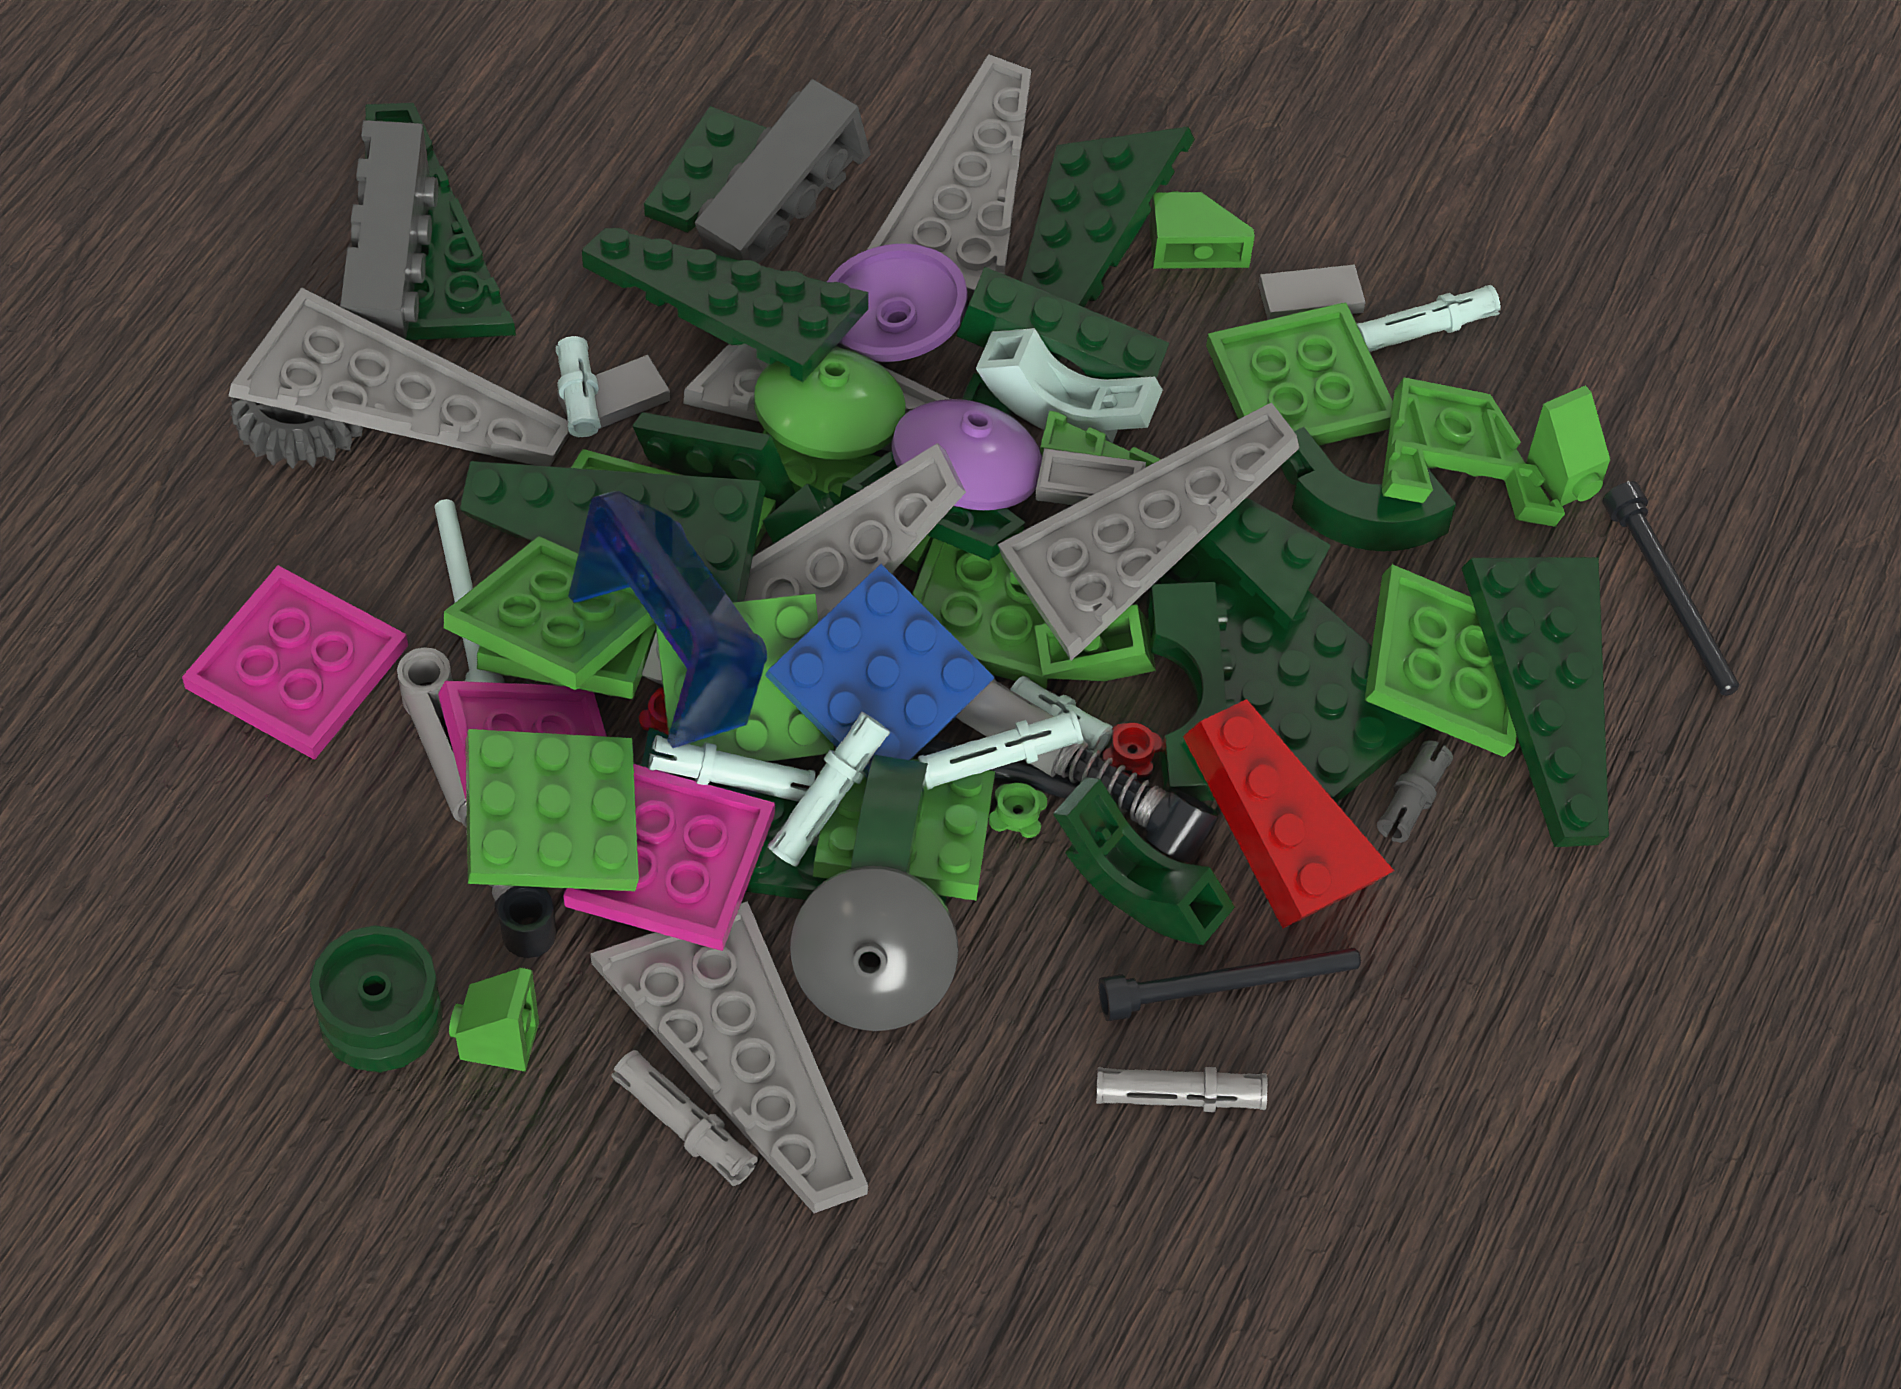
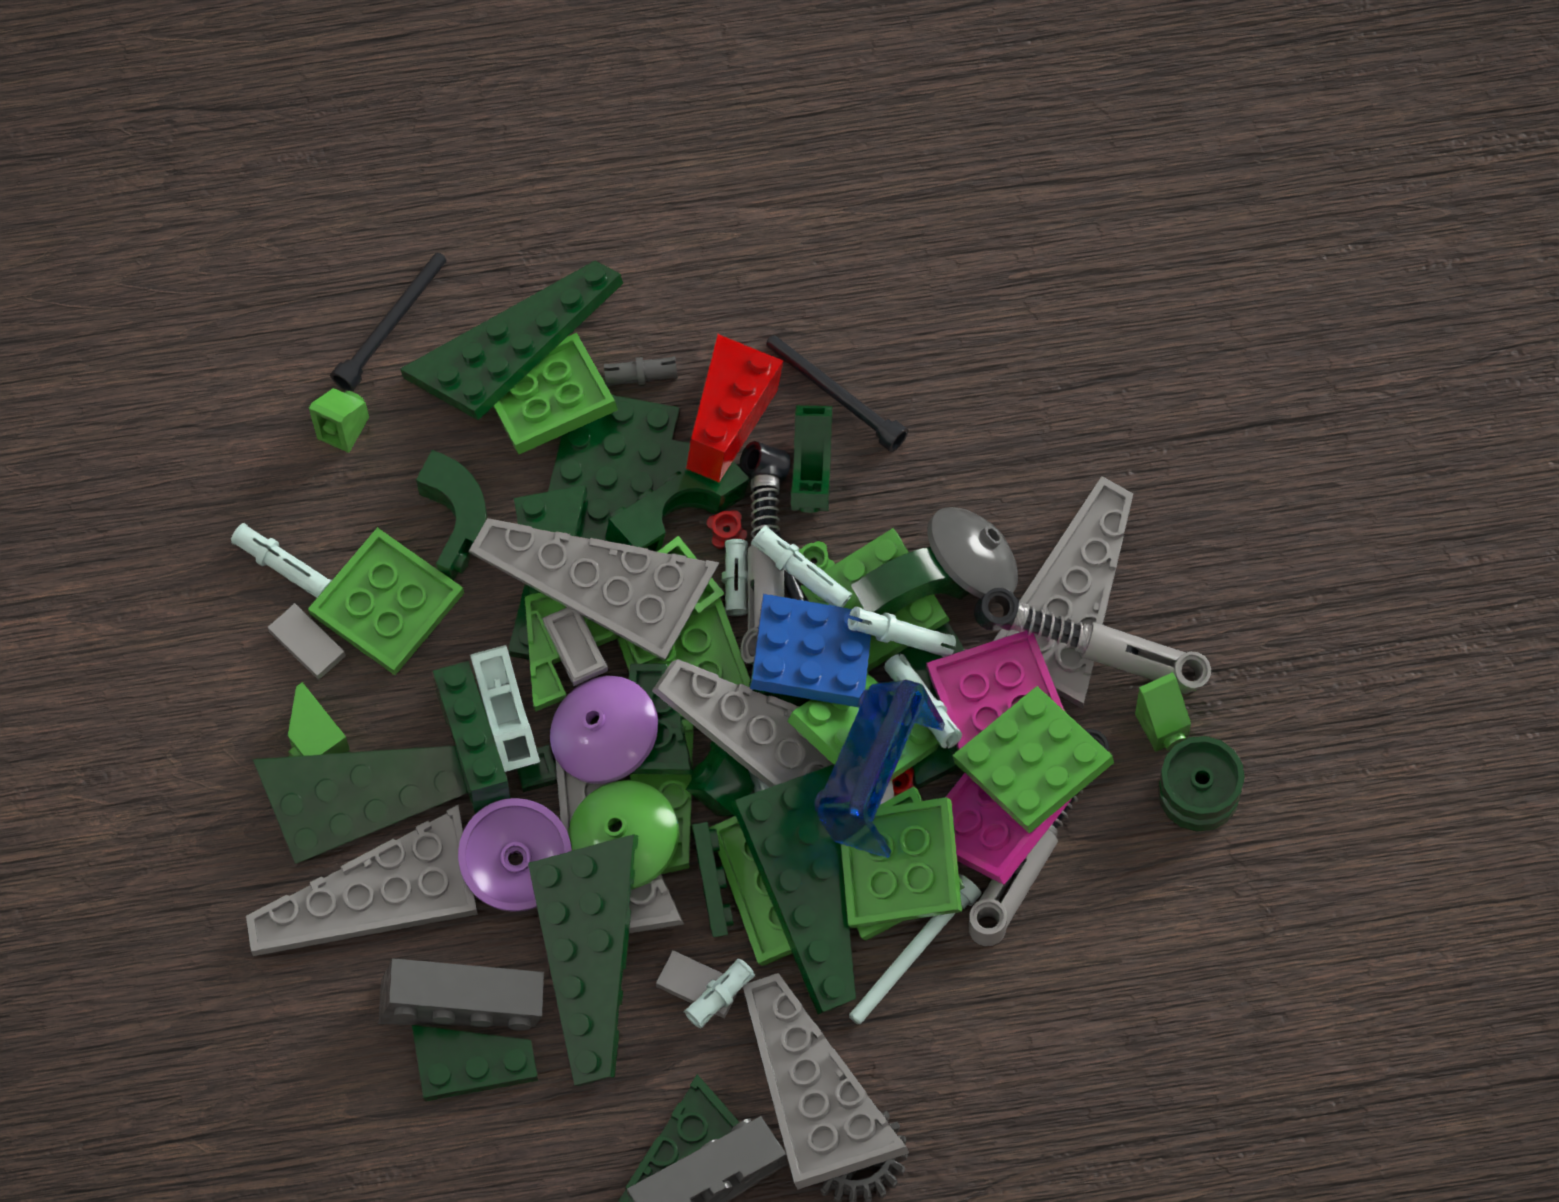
camera: 120 degrees left, 10 degrees up
(295, 662) = (1029, 1008): dark pink plate -> none
(641, 999) = (1095, 641): none -> piece
(701, 1132) = (1135, 581): light grey pin -> none
(1171, 1088) = (912, 358): light grey pin -> none
(1461, 433) = (372, 490): bright green wing -> none

